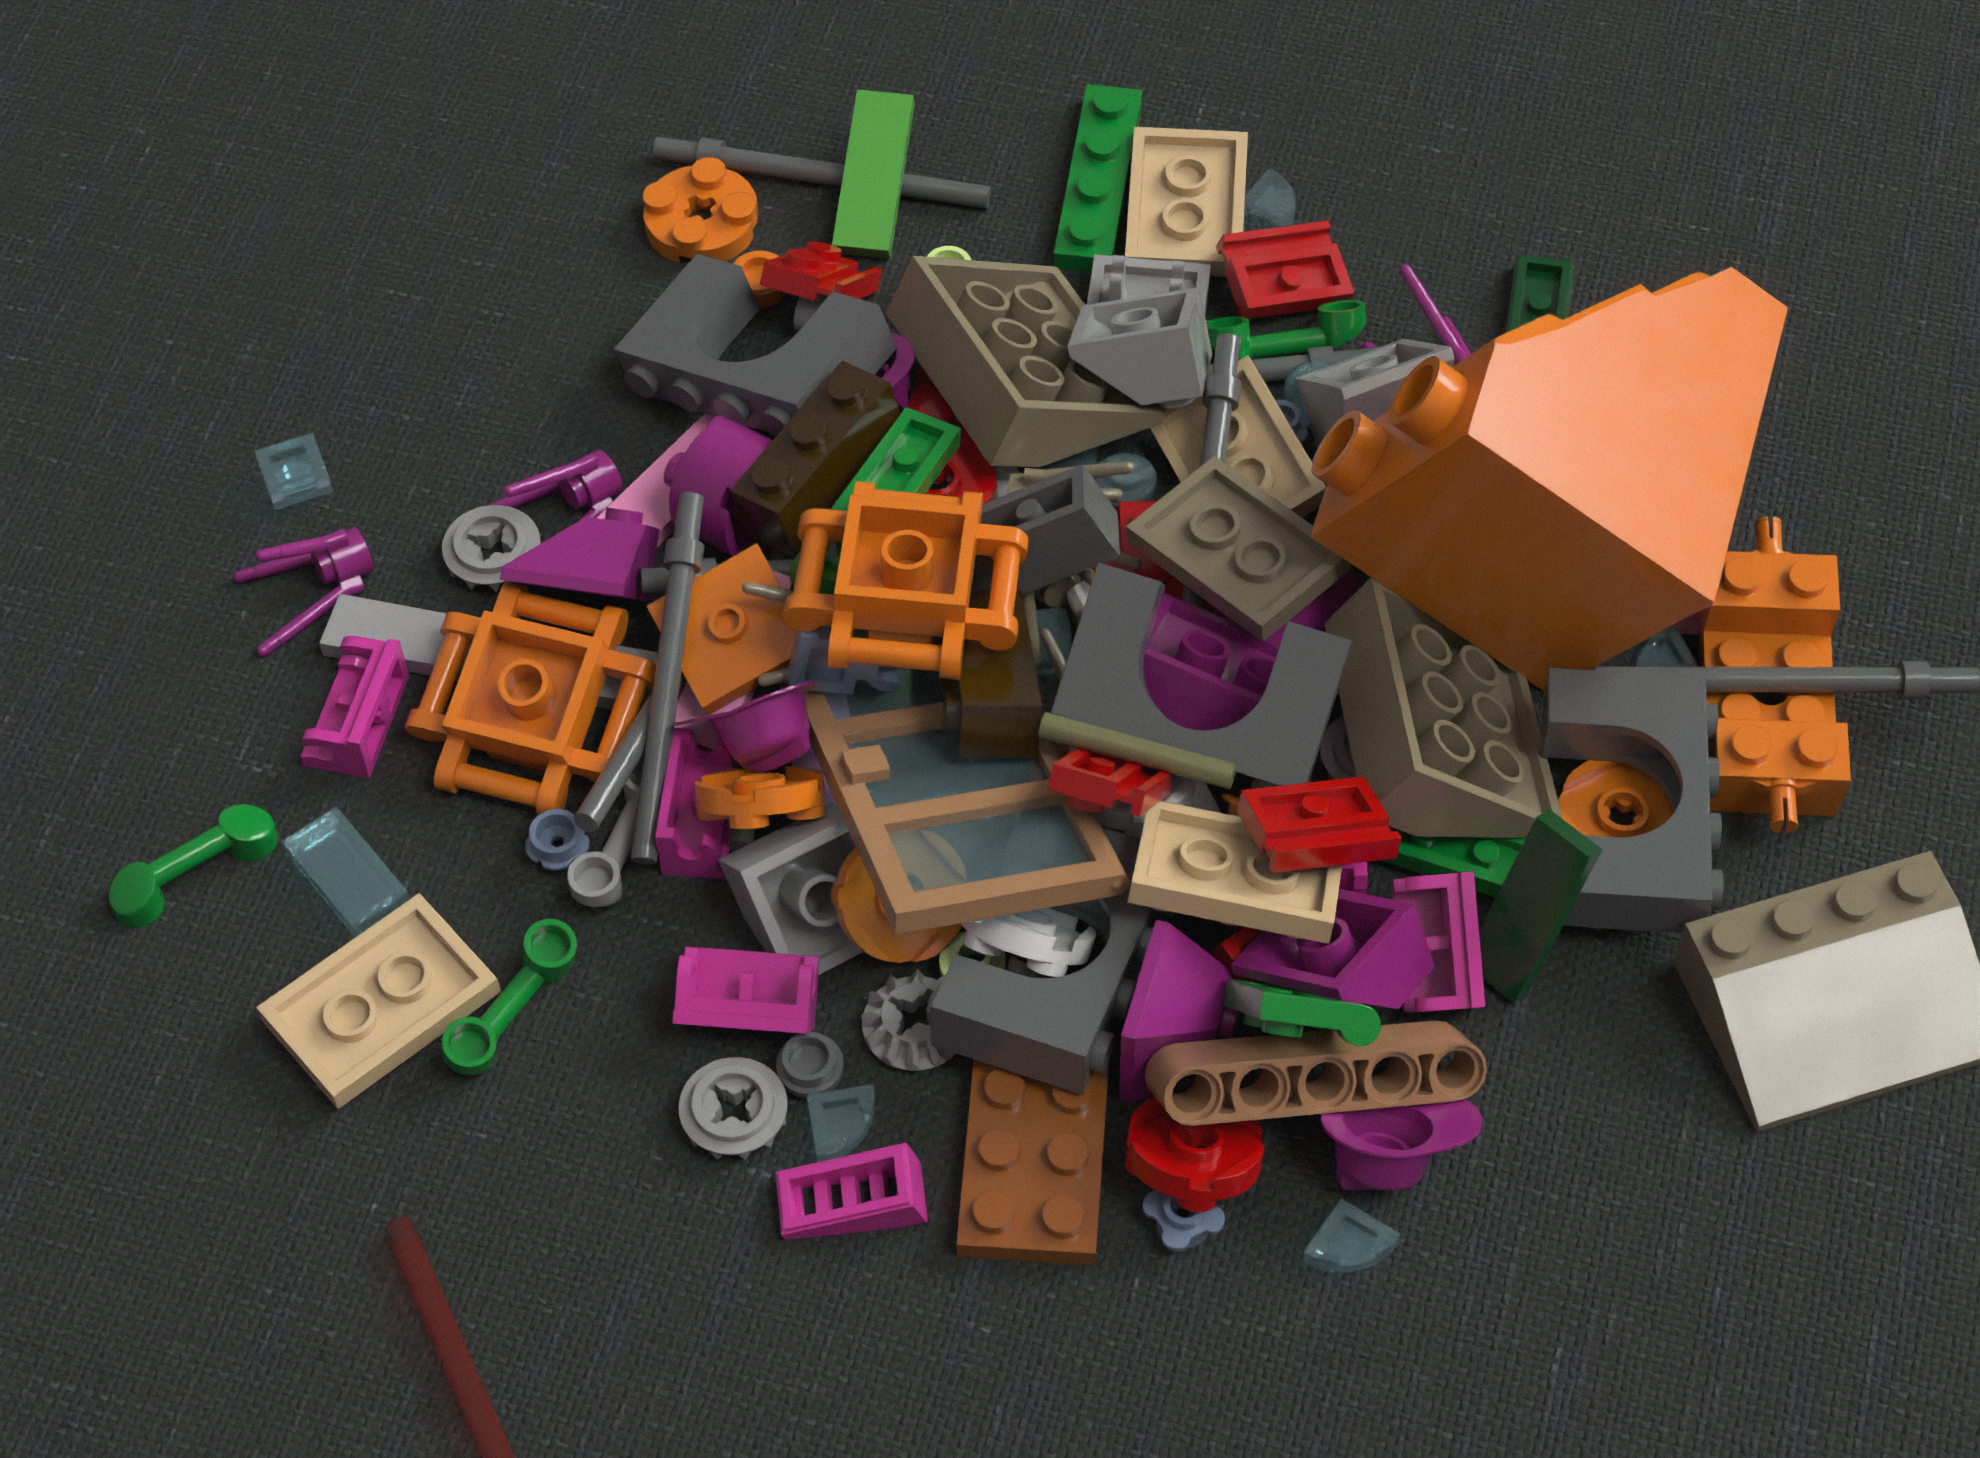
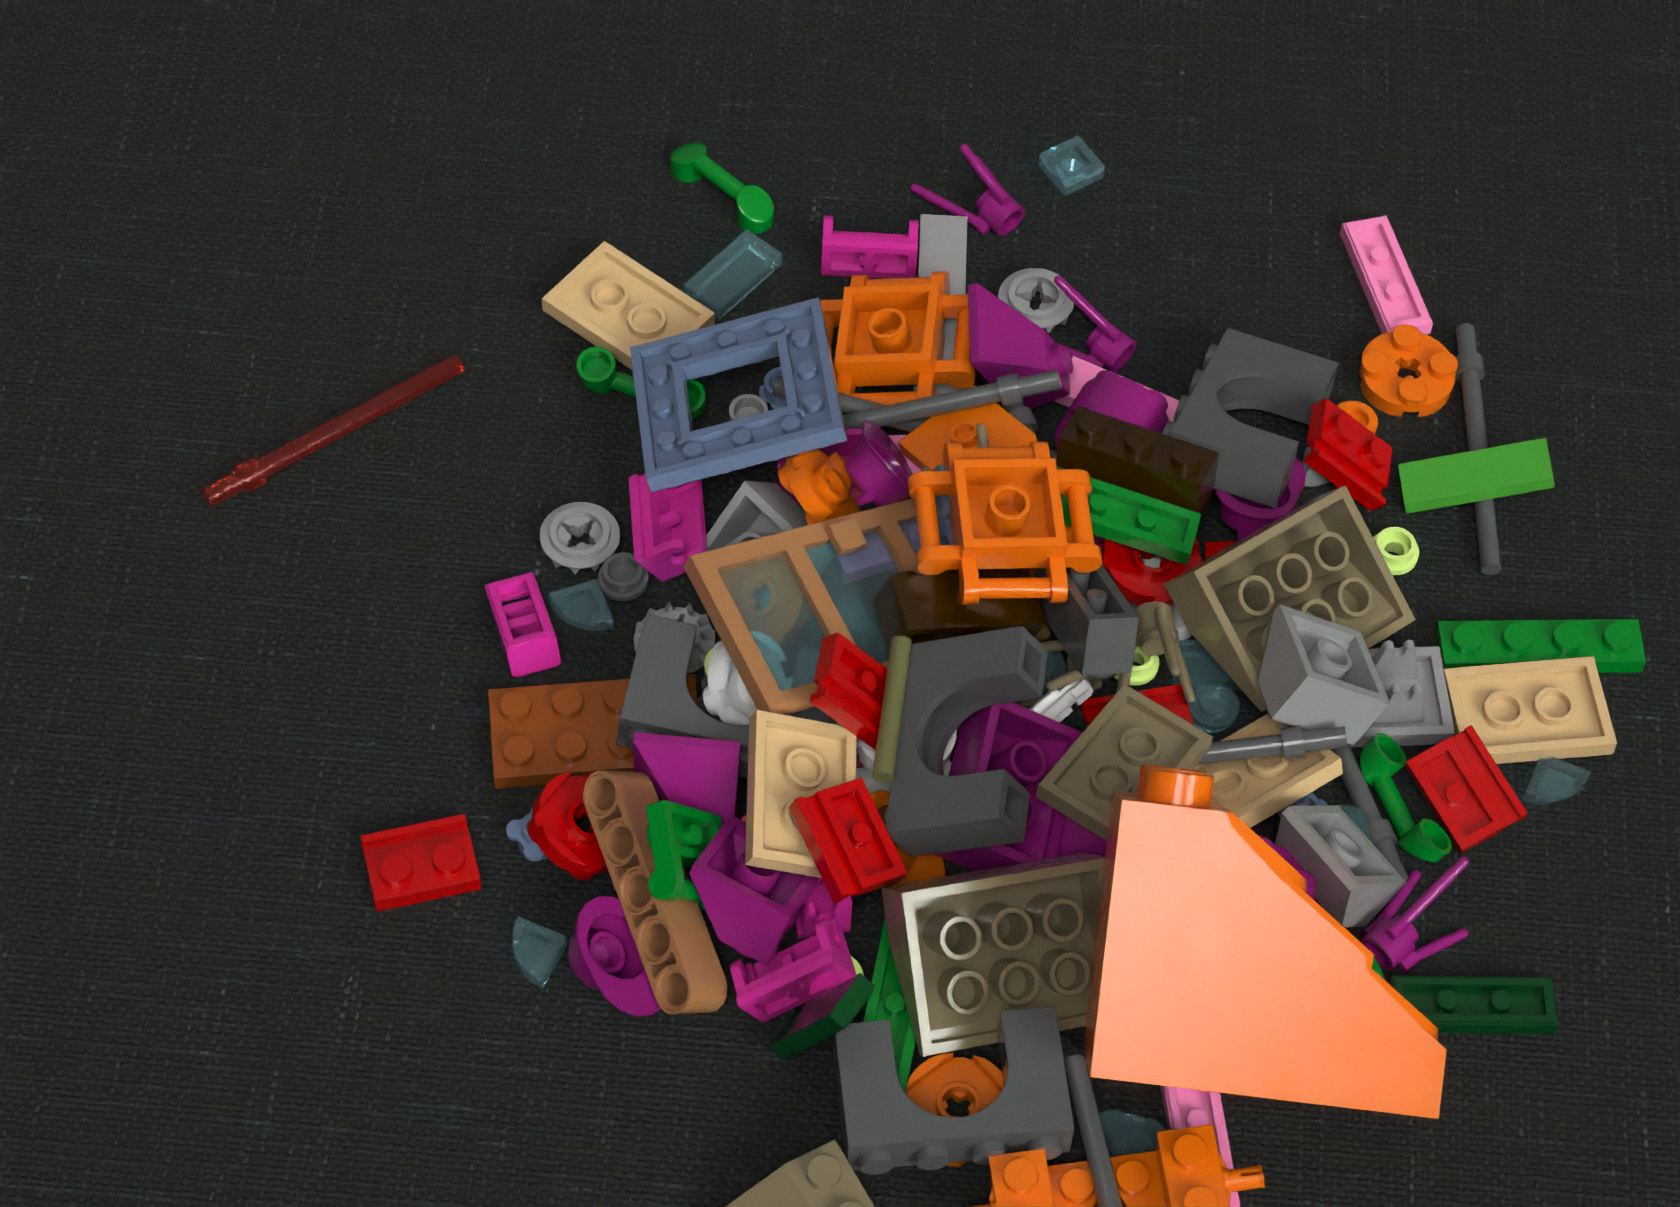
camera: 75 degrees right, 0 degrees up
(556, 206) = (1385, 275): none -> bright pink tile
(684, 942) = (809, 421): none -> sand blue plate
(1201, 1362) = (420, 862): none -> red plate

